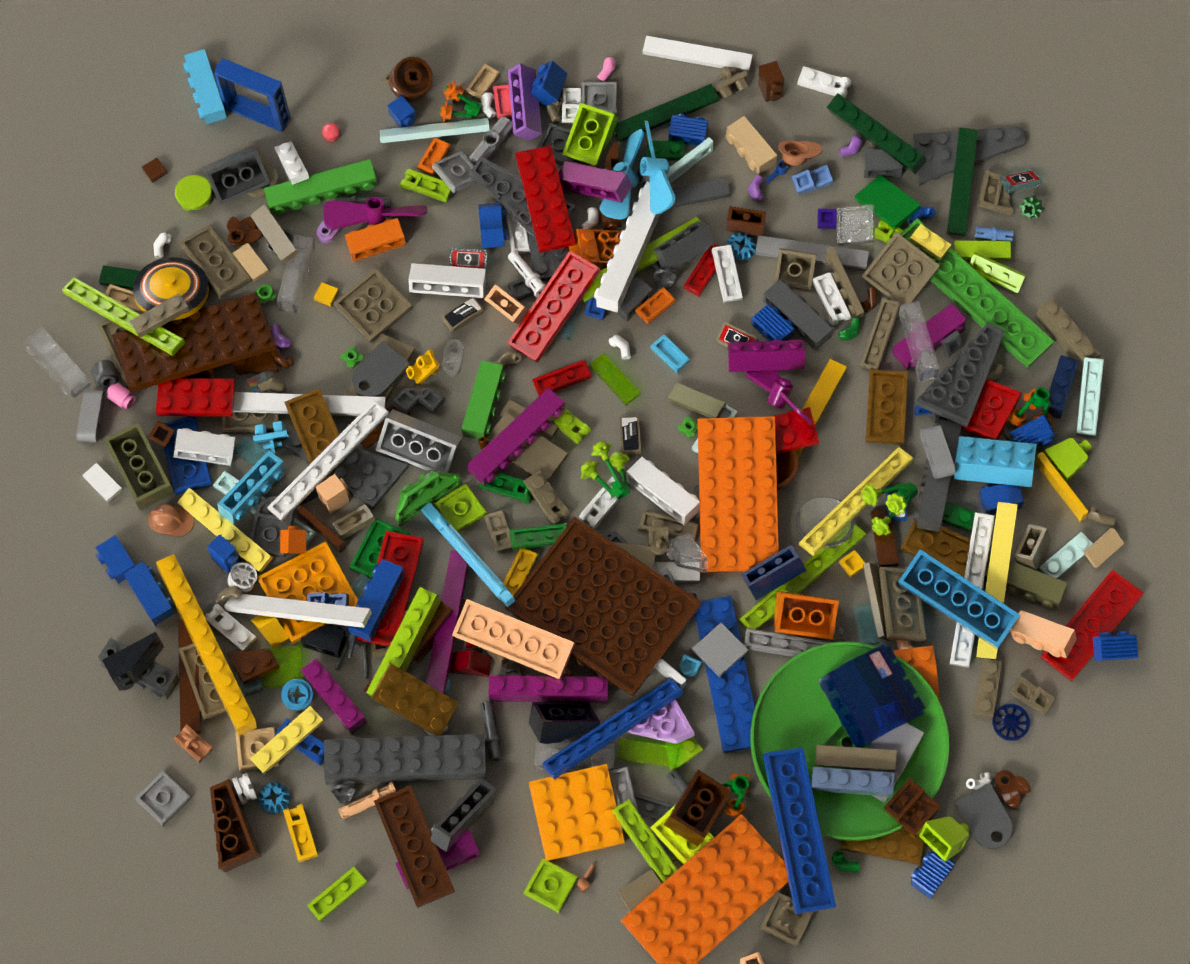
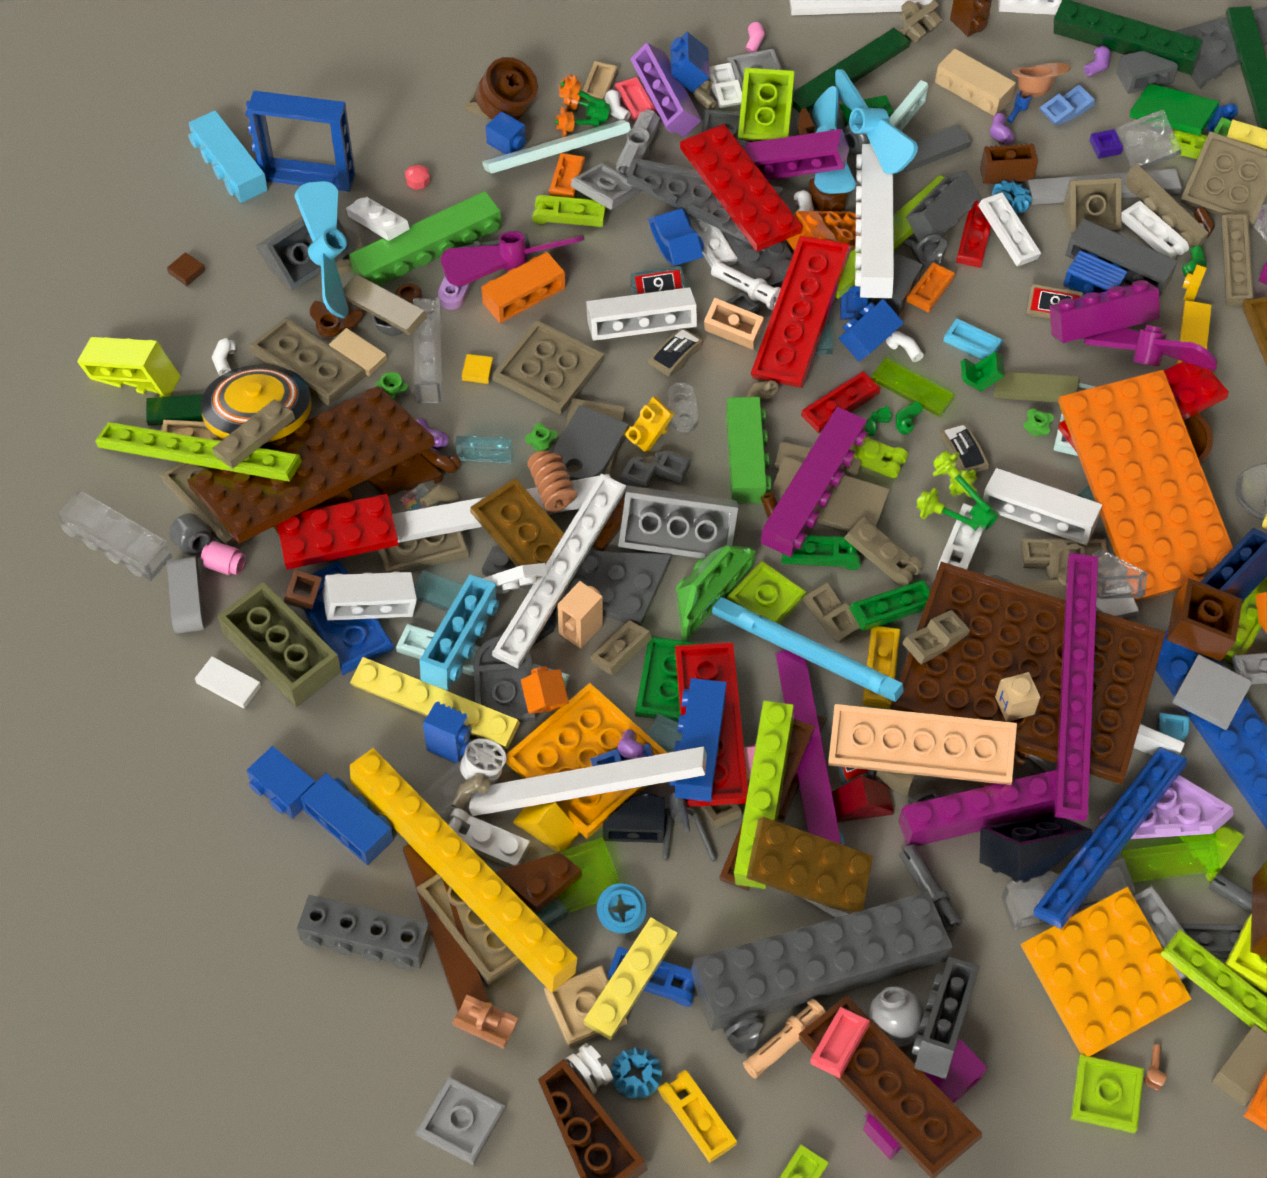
camera: 20 degrees left, 10 degrees down
(98, 238) = (129, 363): none -> neon yellow wedge
(132, 662) = (355, 919): black slope -> none
(170, 520) = (346, 710): nougat piece -> none
(193, 192) = (250, 283): lime tile -> none
(248, 154) = (319, 210): none -> medium azure piece
(262, 436) = (473, 555): medium azure hips -> none
(297, 226) = (408, 292): none -> reddish brown tile
(297, 459) = (517, 577): none -> white plate
(309, 357) = (484, 449): none -> clear light blue plate
(321, 528) = (577, 667): reddish brown tile -> none
(332, 592) = (629, 746): none -> medium lavender arm
(333, 696) = (679, 897): magenta brick -> none
(342, 395) = (552, 480): none -> nougat piece
(394, 813) = (840, 1042): none -> coral tile
(435, 804) = (897, 1014): none -> light grey piece
(549, 570) = (937, 637): none -> dark tan slope
(582, 624) = (1017, 697): none -> tan brick
(585, 395) = (882, 415): none -> green piece
(599, 330) = (870, 330): none -> blue brick
(600, 400) = (904, 417): none -> green arm
(625, 625) = (1076, 688): none -> magenta plate
(663, 381) = (984, 372): none -> green bracket
(687, 129) = (892, 80): blue brick -> none
(732, 600) = (1204, 619): none -> reddish brown brick
(840, 347) = (1193, 282): none -> yellow plate

